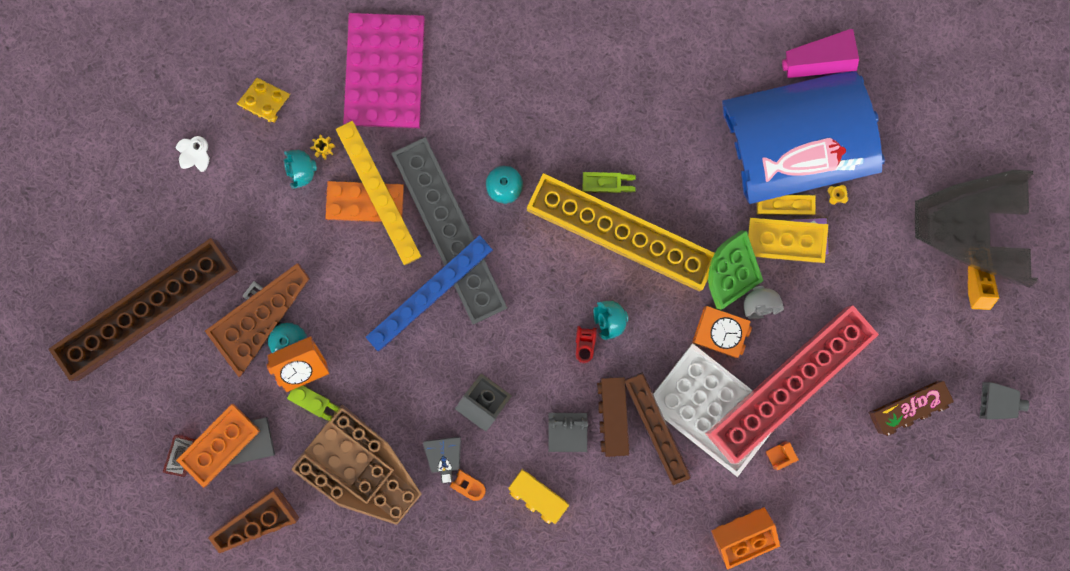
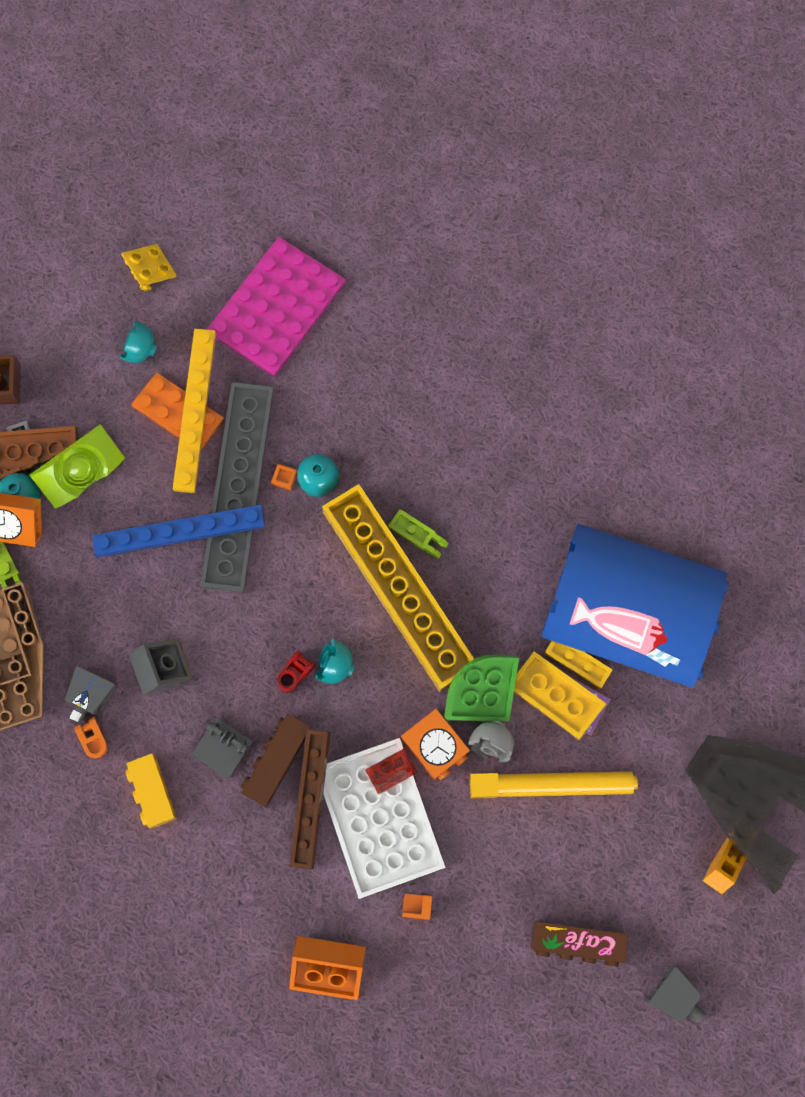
camera: 30 degrees right, 10 degrees down
(191, 155) = (51, 274): white plate -> none
(320, 293) = (78, 467): none -> lime slope
(327, 149) = (176, 343): yellow gear -> none
(479, 201) = (284, 477): none -> orange tile
(702, 371) = (391, 771): none -> clear red slope
(791, 384) = (470, 837): coral brick -> none
(822, 307) = (552, 784): none -> yellow brick
(825, 56) = (702, 541): dark pink slope -> none
(842, 194) = (643, 681): yellow plate -> none

